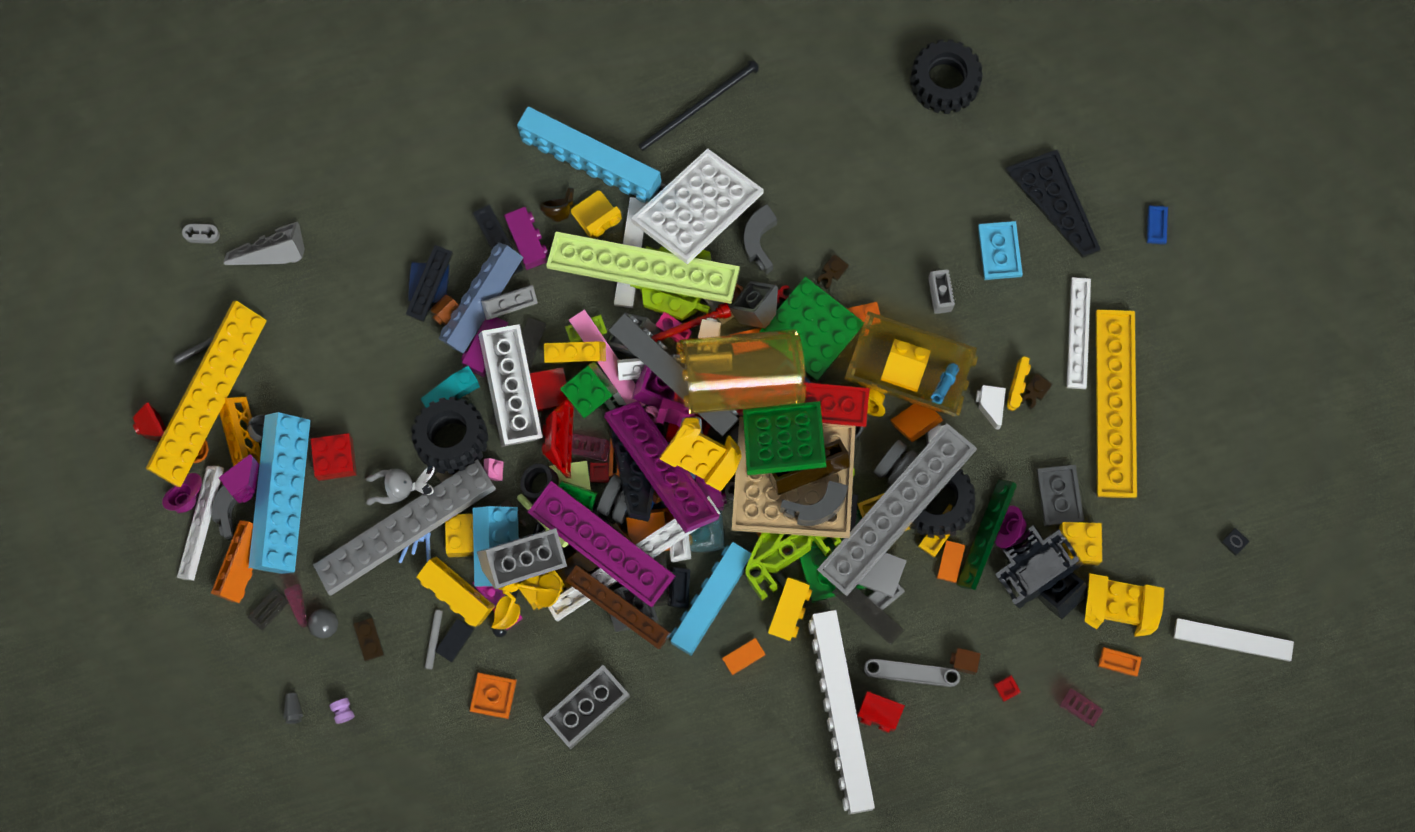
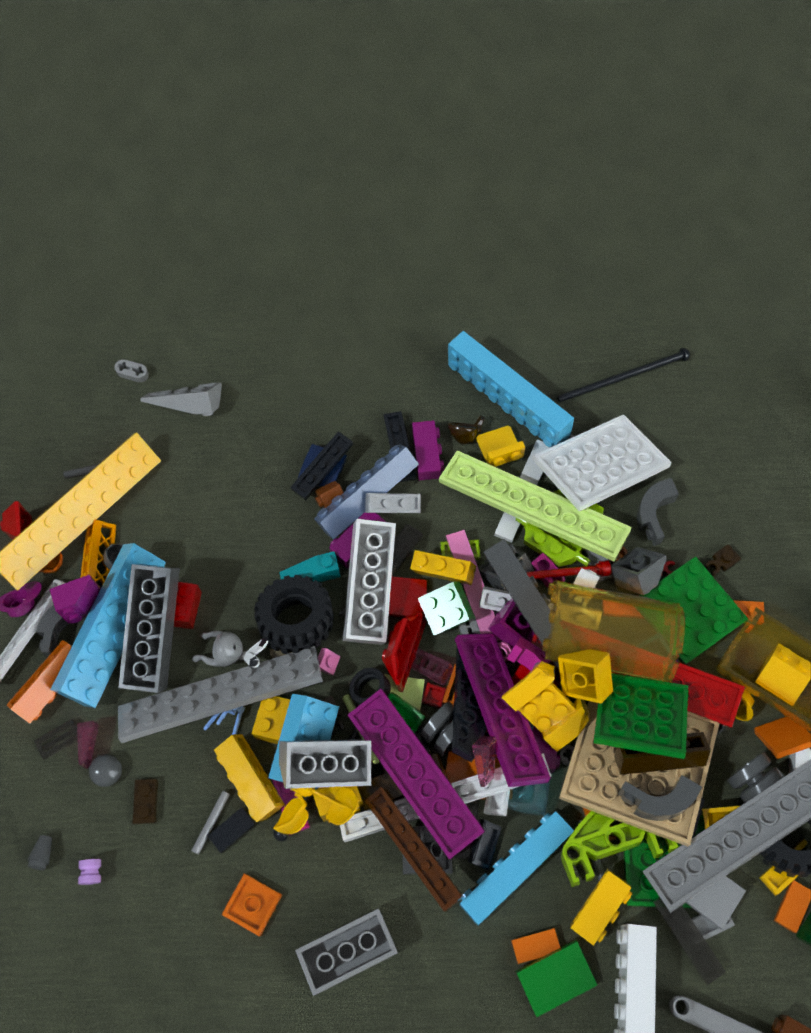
camera: 20 degrees right, 10 degrees down
(320, 485) = (149, 628): none -> dark grey brick
(659, 515) = (484, 757): none -> clear pink slope
(728, 418) = (586, 675): none -> yellow slope
(766, 676) = (556, 978): none -> green tile

